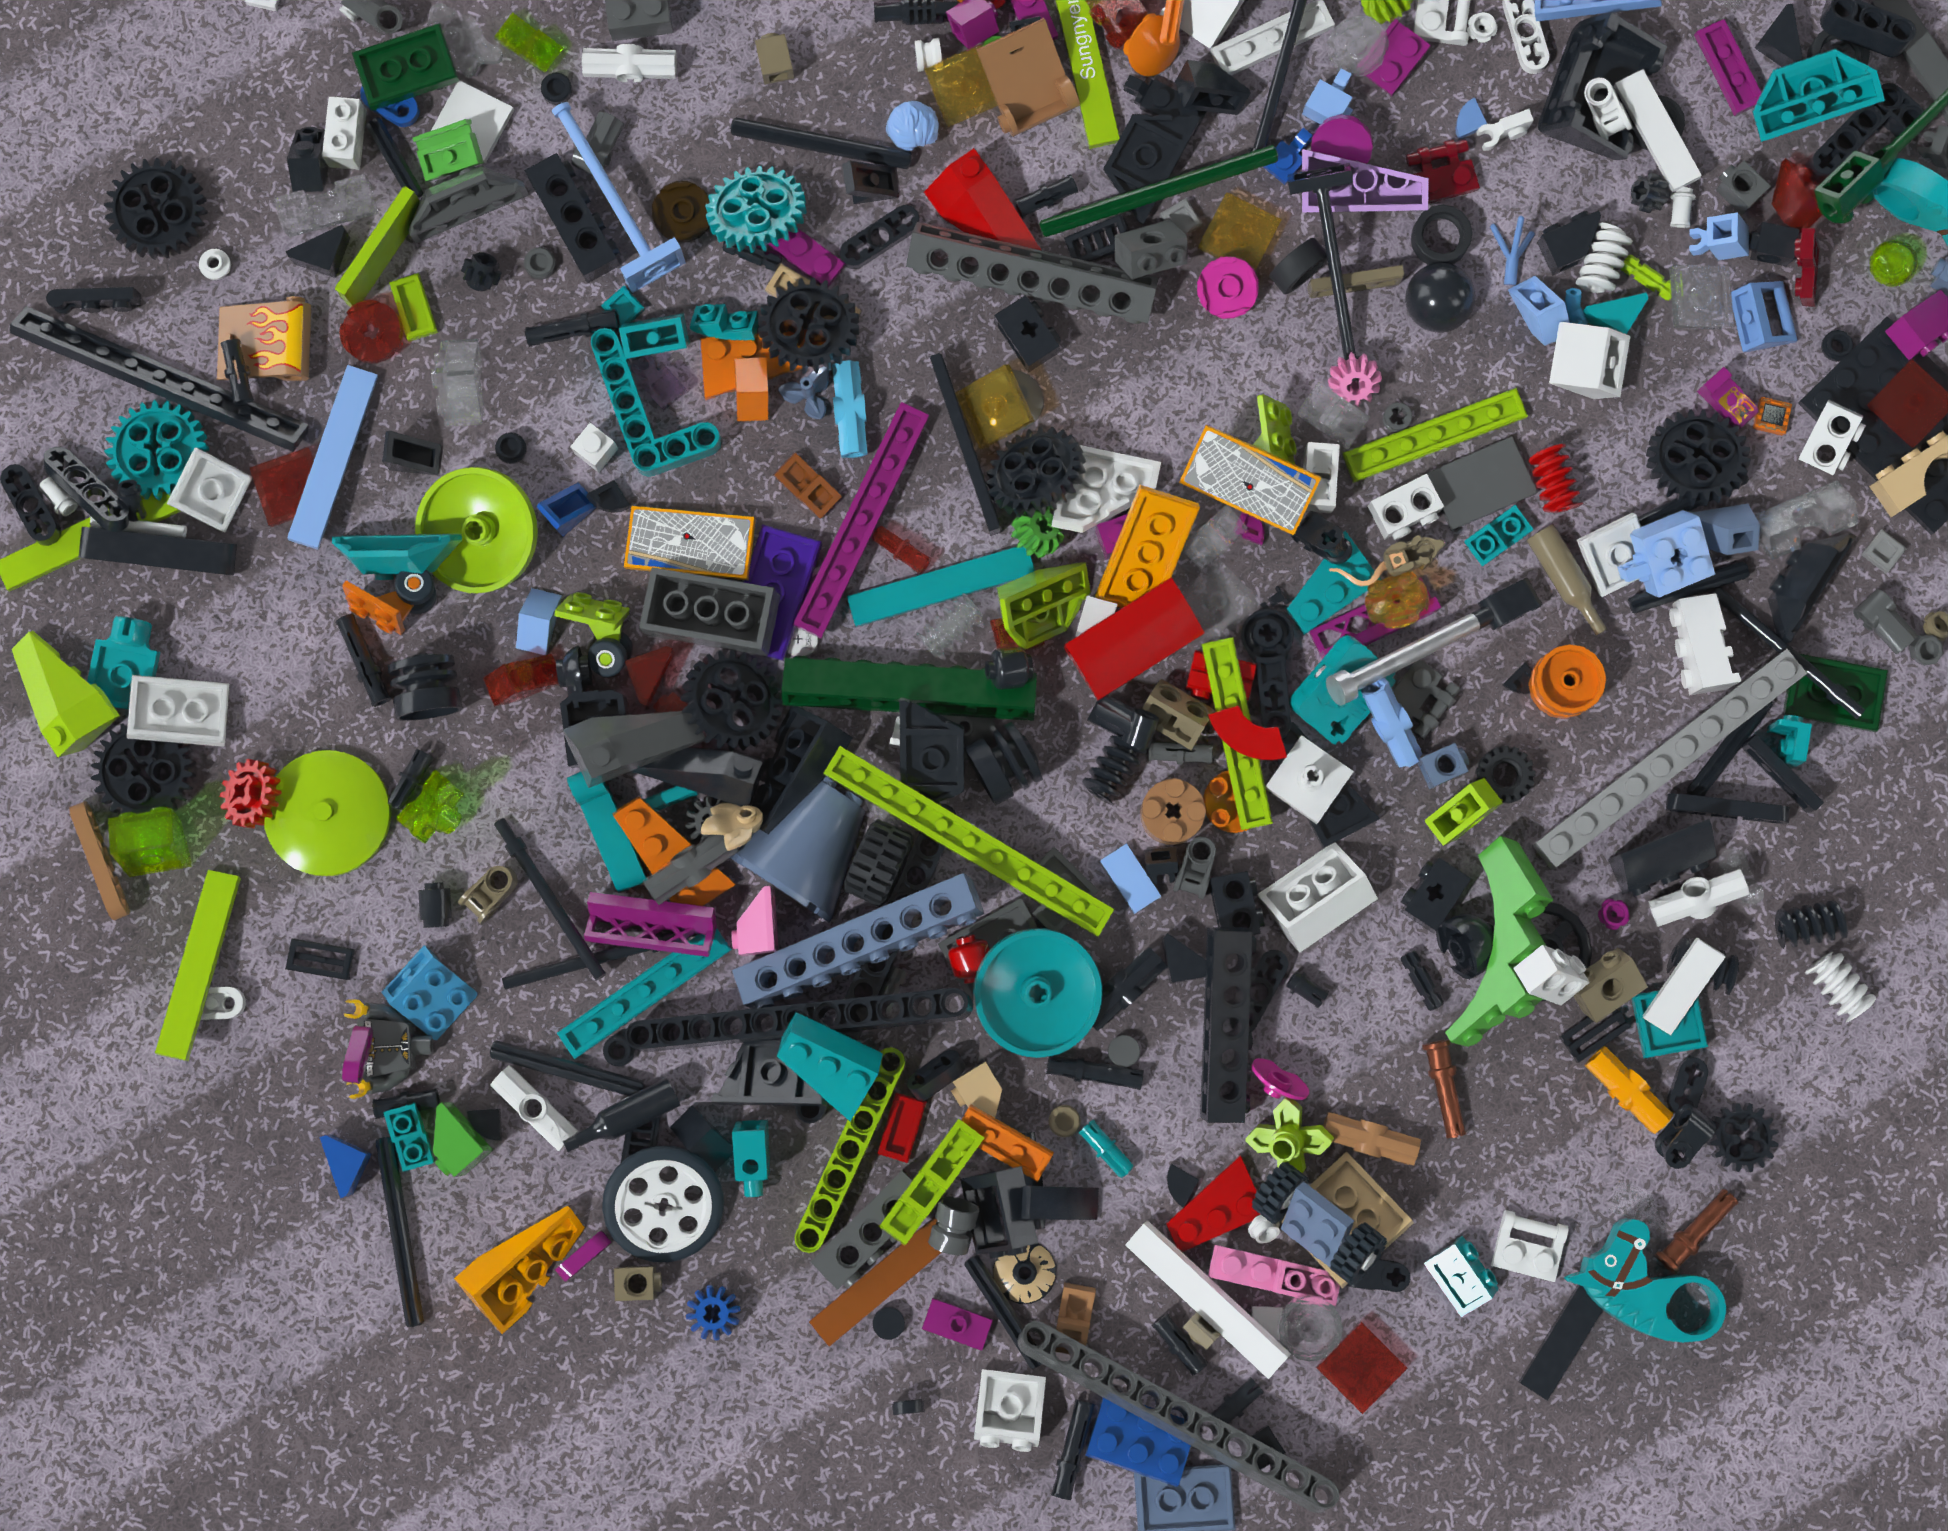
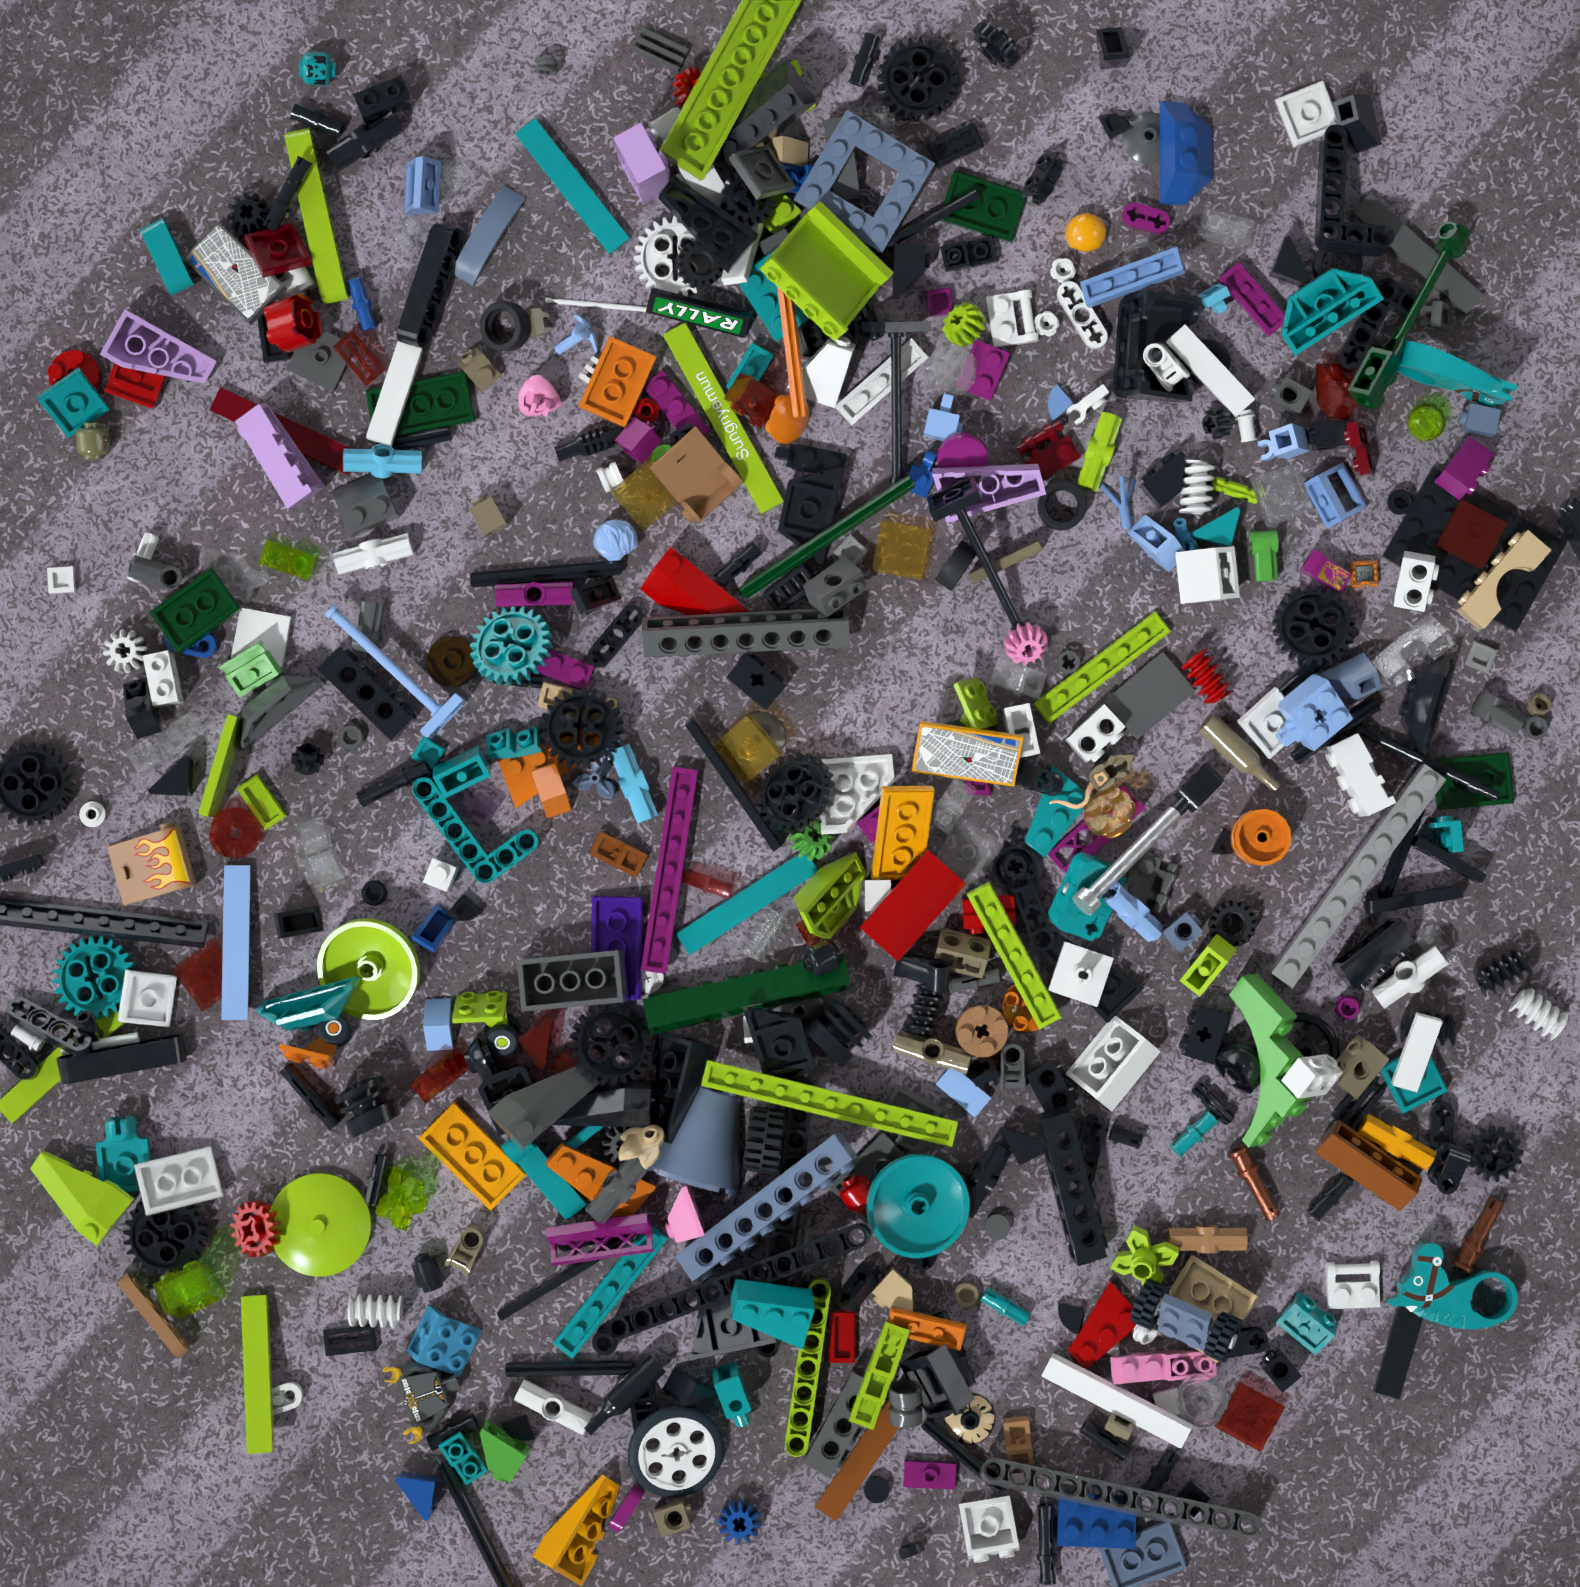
camera: 20 degrees left, 5 degrees up
(242, 391) = (131, 882): black pin -> none
(304, 81) = (120, 660): none -> white gear
(357, 1054) = (405, 1410): magenta beam -> none
(358, 932) = (375, 1311): none -> white piece
(393, 156) = (214, 691): black axle -> none
(517, 848) = (477, 1208): black bar -> none
(531, 785) = (472, 1155): none -> light orange tile
(556, 88) = (320, 590): black tile -> none
(690, 542) = (539, 927): tile -> none
(780, 156) = (517, 594): none -> magenta piece
(1026, 1065) = (925, 1263): none -> black hinge
(1059, 1203) = (982, 1361): black tile -> none
(1091, 810) = (916, 1047): none -> dark tan piece
(1097, 1072) = (969, 1251): black pin -> none
(1210, 89) = (843, 440): black slope -> none
(1228, 287) = (904, 597): dark pink tile -> none
(1247, 737) = (1023, 958): red tile -> none
(1278, 1081) = (1124, 1216): dark pink dish -> none
(1389, 1009) = (1194, 1134): none -> teal pin
(1421, 1333) = (1287, 1377): none -> black brick
(1440, 297) = (1075, 555): black piece -> none
(1498, 535) = (1174, 733): teal slope -> none
(1502, 187) = (1099, 451): none -> lime piece
(1531, 1132) = (1330, 1197): none -> black pin
(1588, 1106) = (1368, 1165): none -> dark orange brick
(1662, 358) = (1264, 554): none -> bright green piece
(1685, 52) = (1214, 298): none -> medium azure tile

